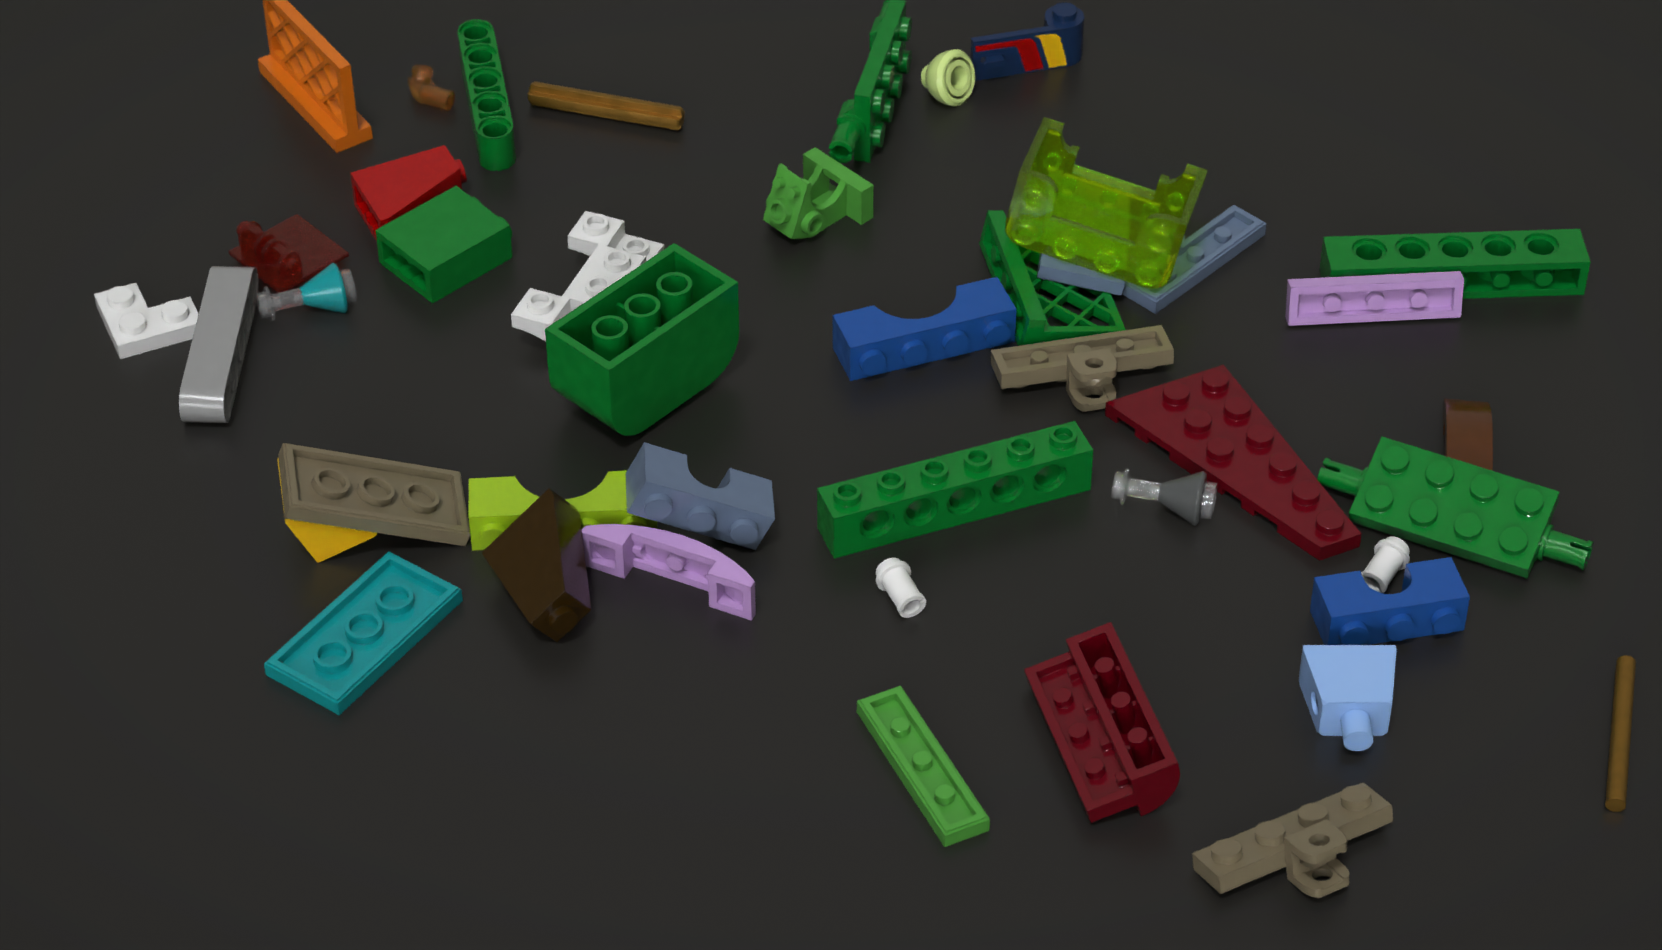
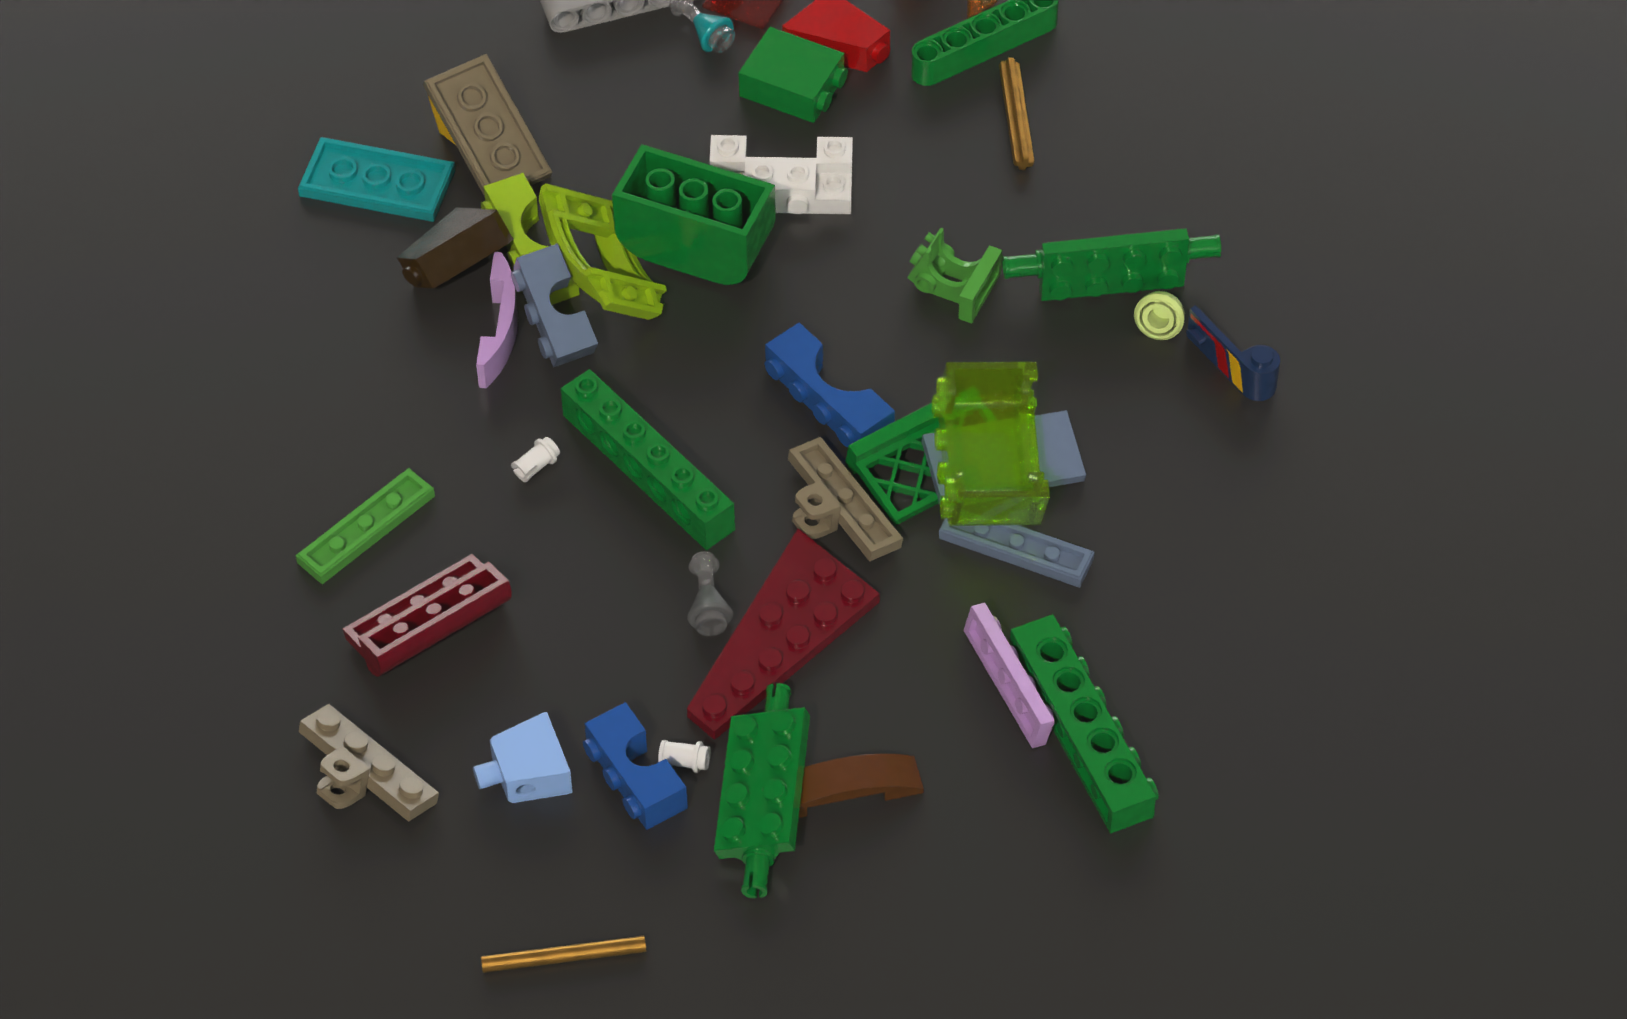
camera: 70 degrees right, 10 degrees up
(617, 451) = (625, 284): none -> lime wedge

